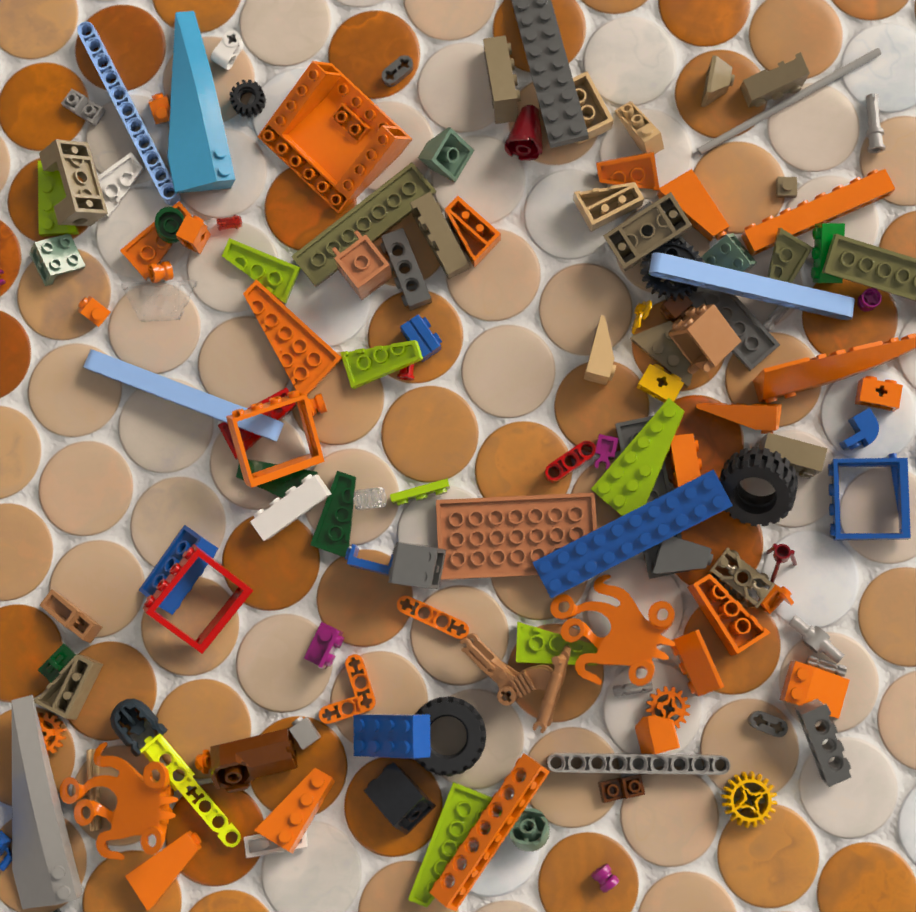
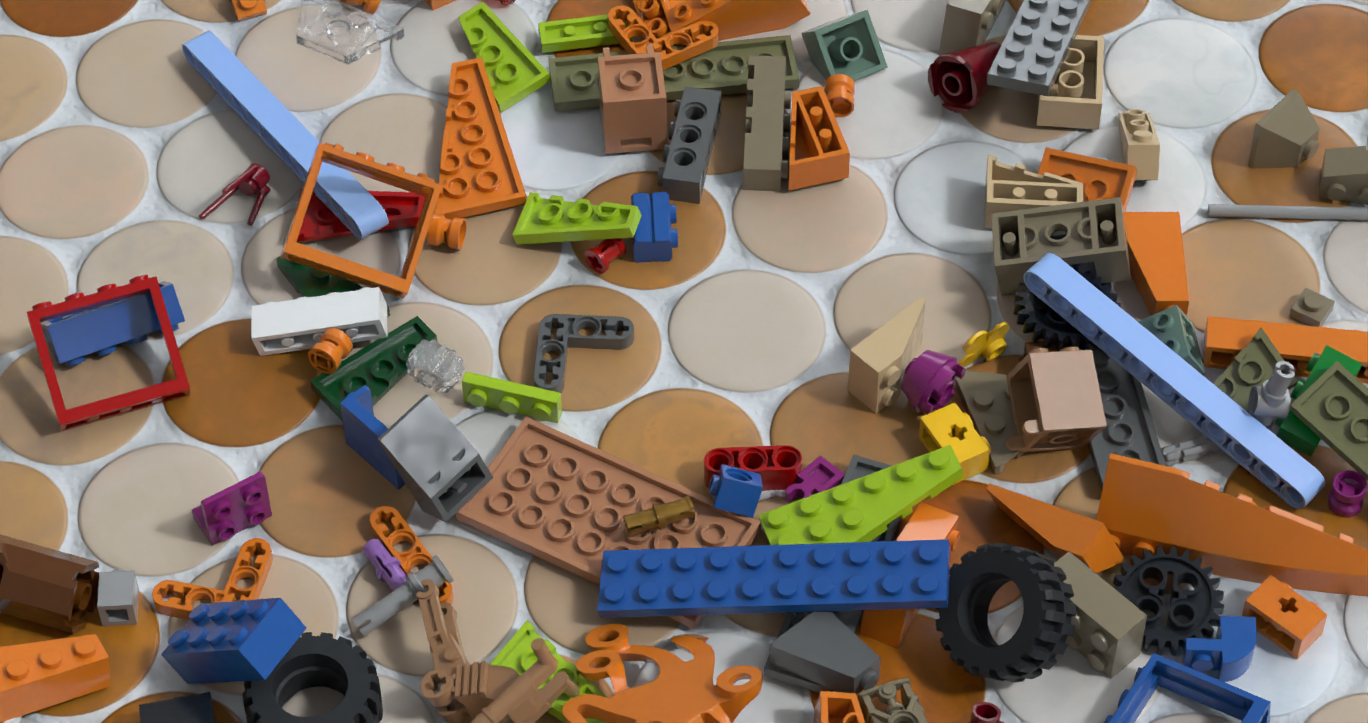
camera: 25 degrees right, 30 degrees down
(186, 435) = (250, 183): none -> dark red plant
(297, 224) = (576, 33): none -> lime plate
(311, 524) = (328, 353): none -> orange wheel
(345, 217) = (696, 37): none -> orange beam
(422, 432) = (569, 337): none -> dark grey beam
(427, 632) = (386, 566): none -> medium lavender pin
(452, 641) = (403, 595): none -> light grey pin
(463, 188) = (840, 92): none -> orange wheel
(545, 524) = (659, 516): none -> pearl gold pin
(574, 484) = (736, 490): none -> blue brick
(629, 356) = (931, 380): none -> magenta cone
(811, 272) = (1273, 397): none -> light grey pin
(834, 412) = (1200, 605): none -> black gear

